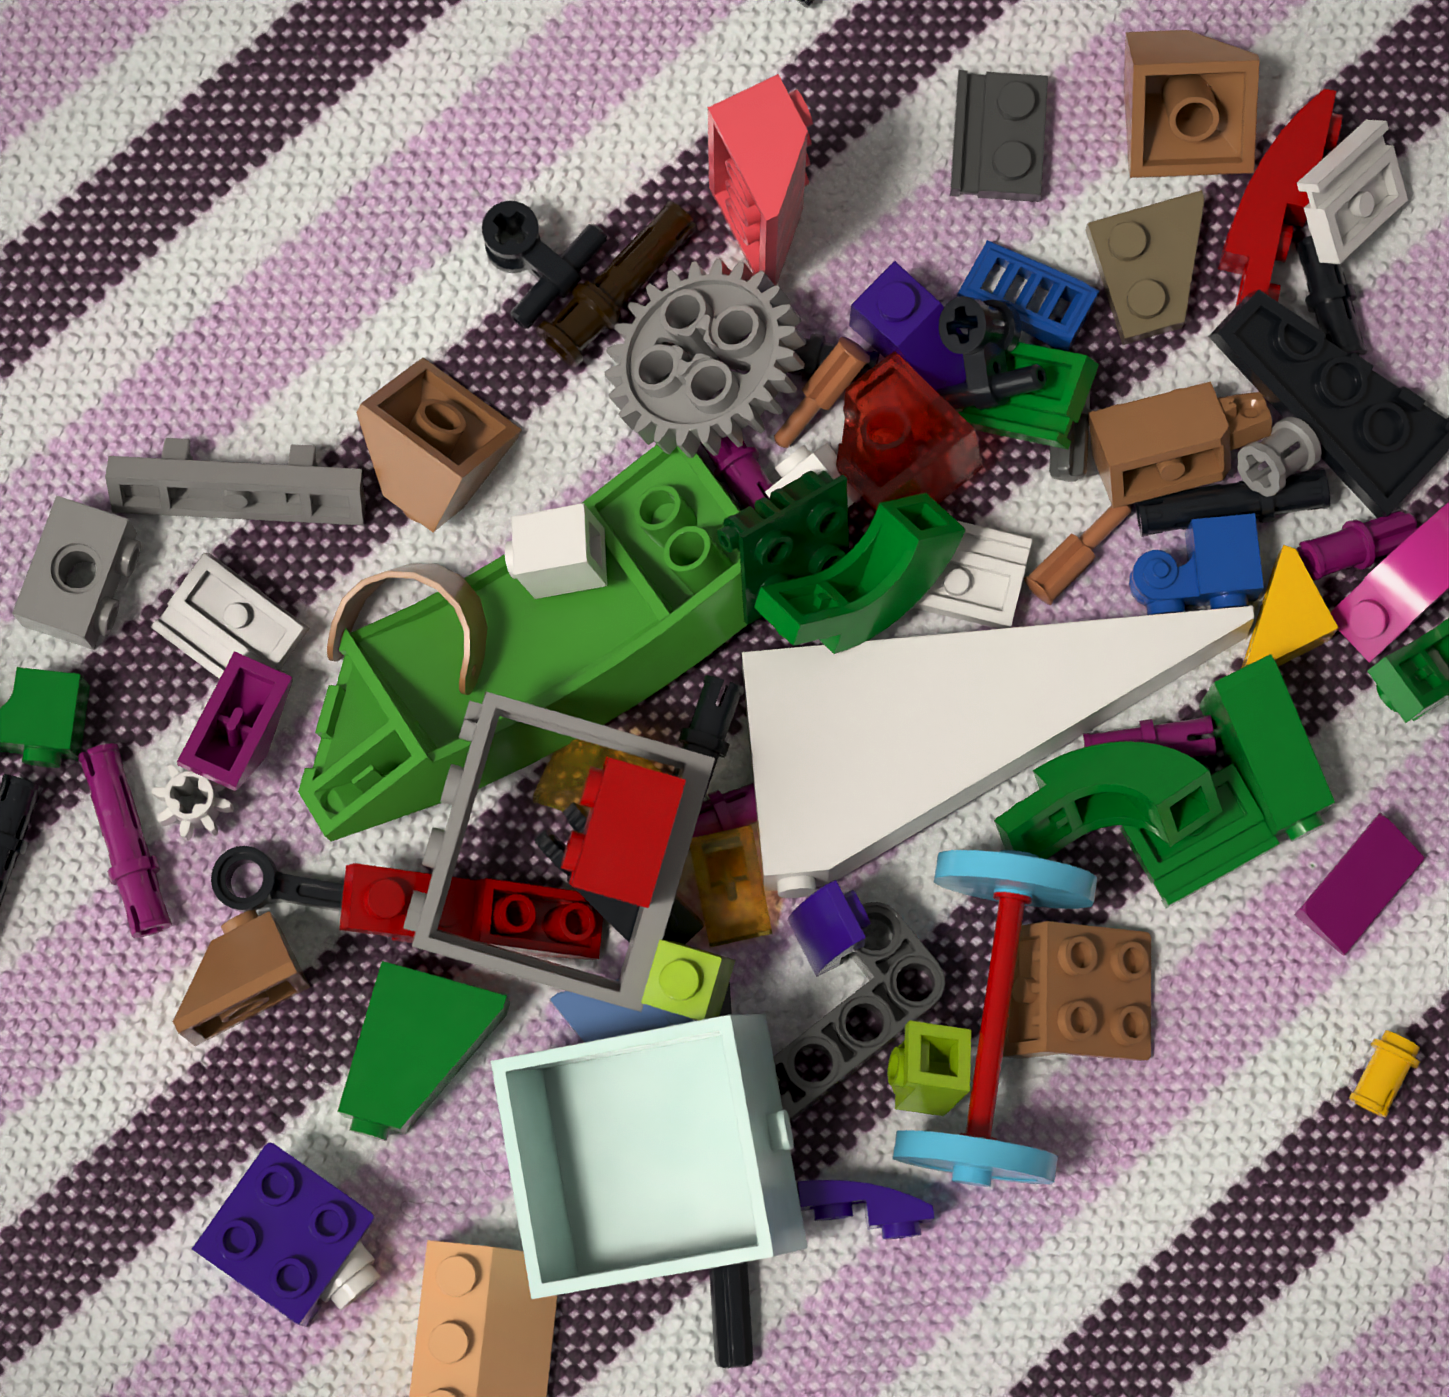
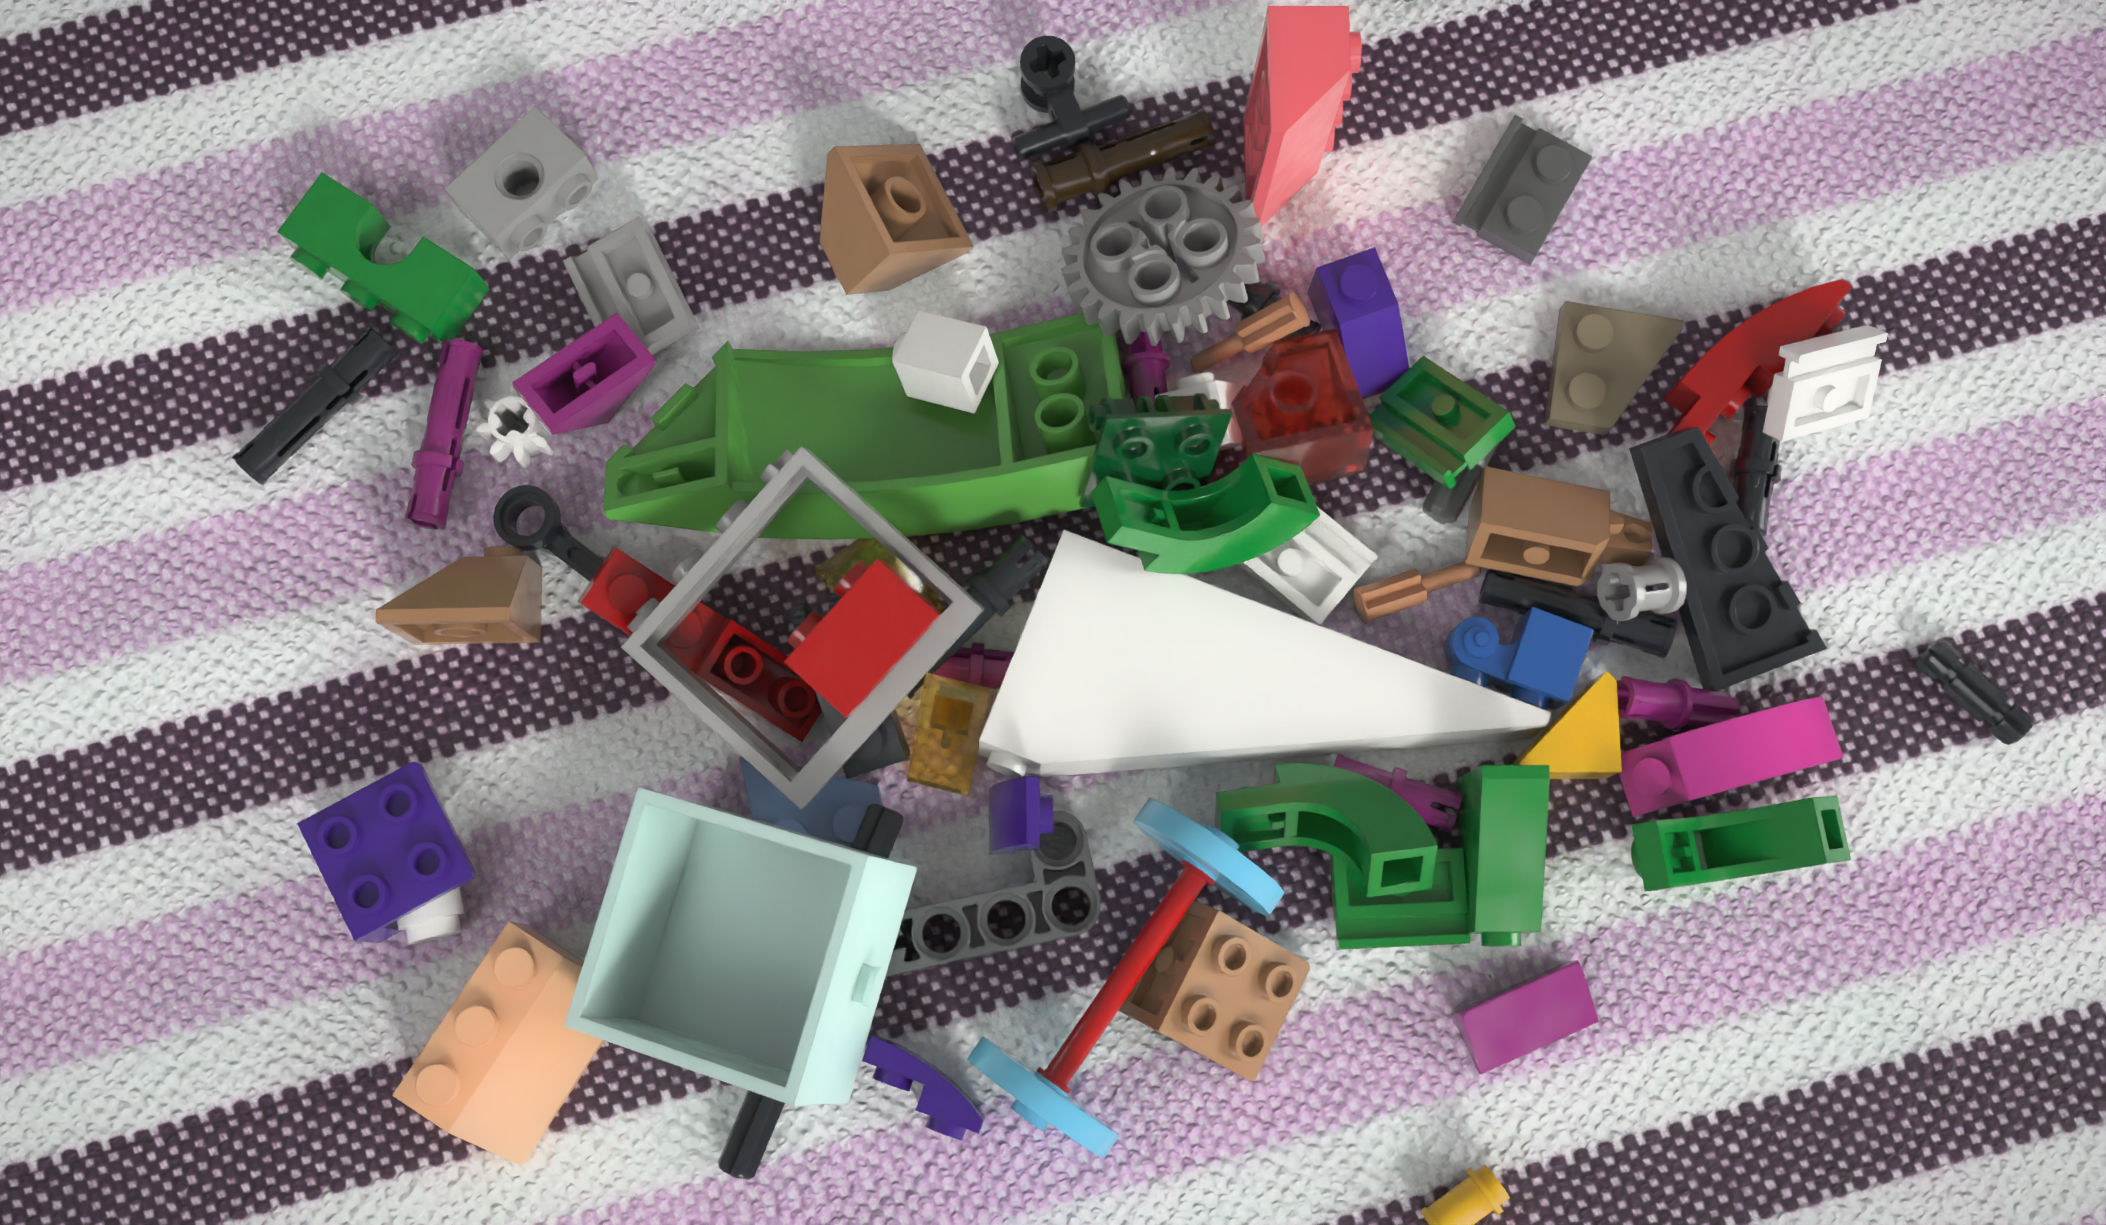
camera: 25 degrees right, 0 degrees up
(236, 490) = (662, 159): light grey hinge -> none
(412, 1046) = (594, 739): green slope -> none
(450, 586) = (837, 349): medium nougat piece -> none
(687, 980) = (859, 803): lime brick -> none
(921, 1068) = (1046, 991): lime brick -> none
(985, 353) = (1416, 368): black piece -> none
(1059, 285) = (1512, 342): blue slope -> none
(1189, 105) = (1709, 239): medium nougat slope -> none

